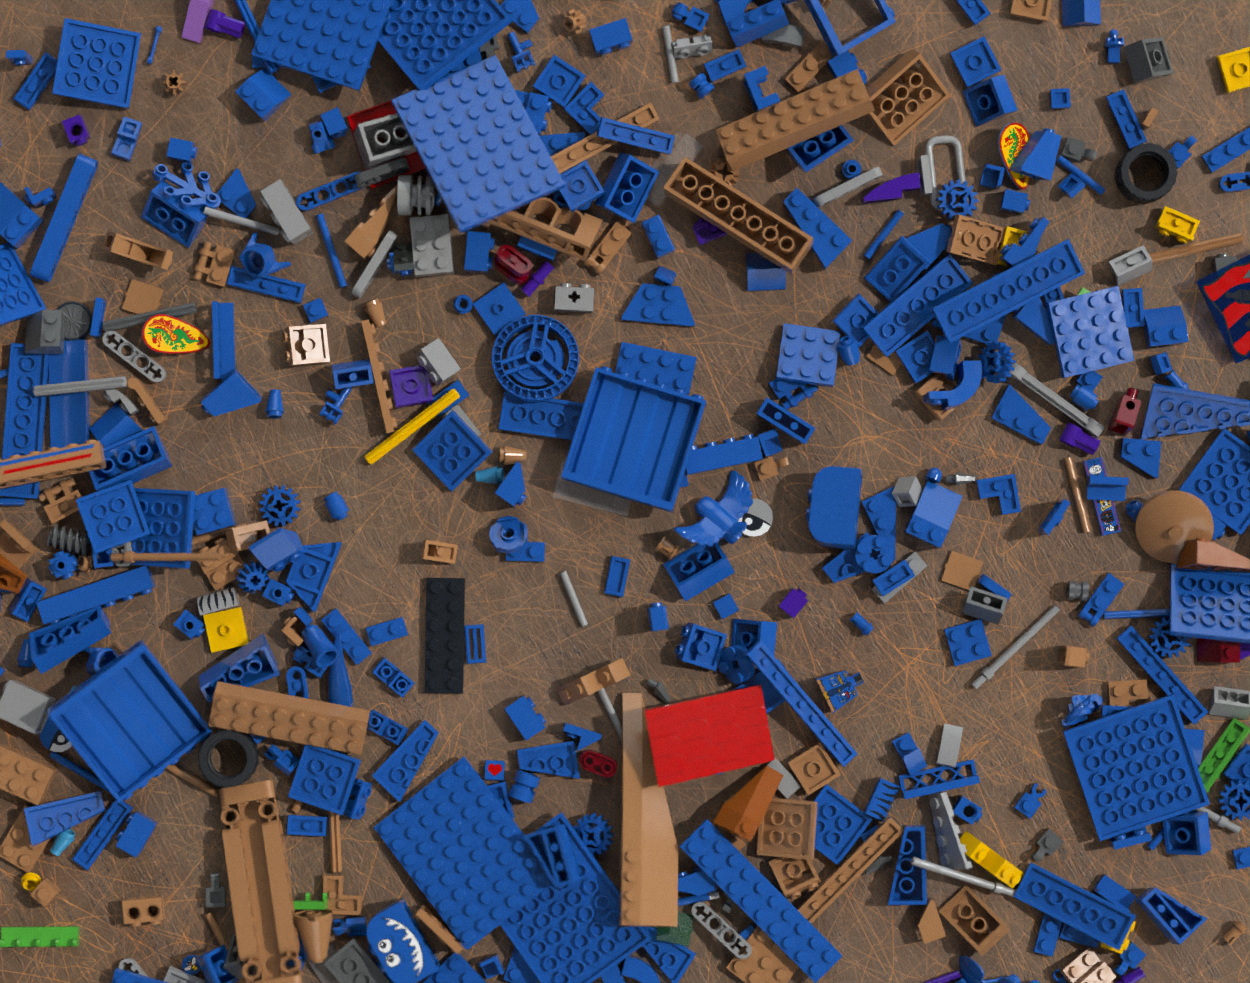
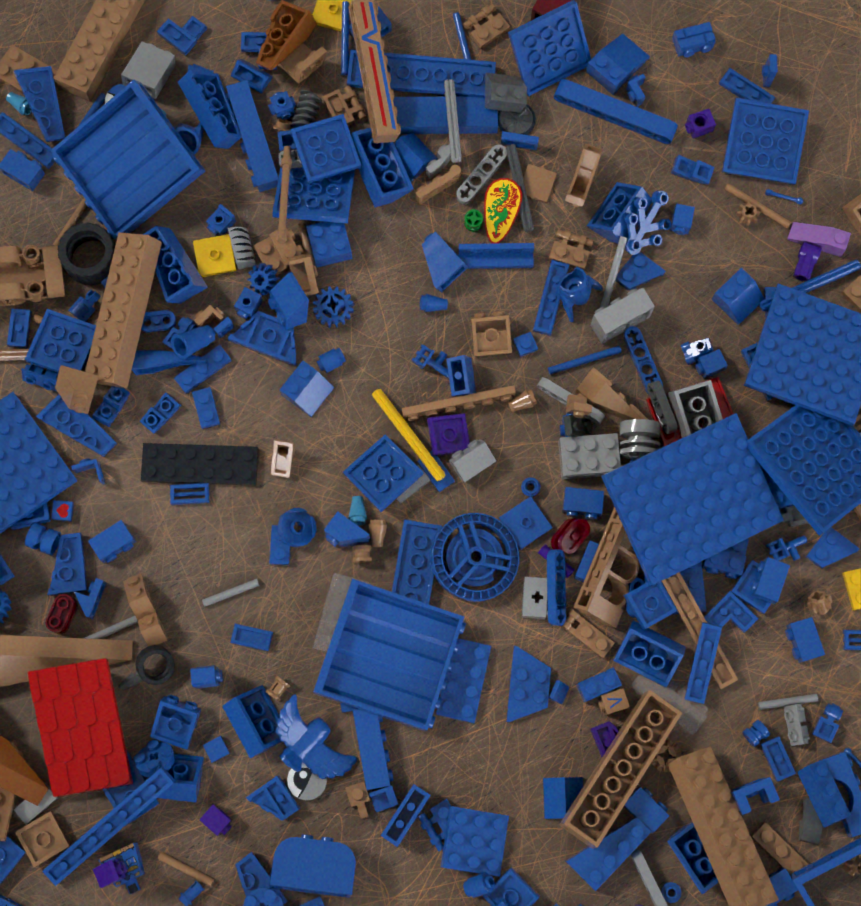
camera: 95 degrees right, 10 degrees down
(166, 69) = (760, 207): none -> medium nougat bar
(181, 364) = (473, 216): none -> green wheel
(366, 529) = (306, 389): none -> blue slope
(373, 759) = (76, 388): none -> medium nougat slope
(382, 257) = (577, 406): none -> medium nougat bracket
(447, 746) = (87, 464): none -> blue bracket
(534, 470) = (362, 554): none -> medium nougat wheel
(554, 69) = (770, 580): none -> blue brick
(565, 277) = (555, 587): none -> blue beam
(657, 660) = (162, 677): none -> black tyre
(674, 222) = (613, 702): none -> medium nougat brick
(772, 547) = (275, 798): none -> blue wing
(776, 191) = (646, 809): none -> blue brick
(839, 630) = (186, 869): none -> medium nougat bar
(845, 698) = (110, 872): none -> dark purple slope

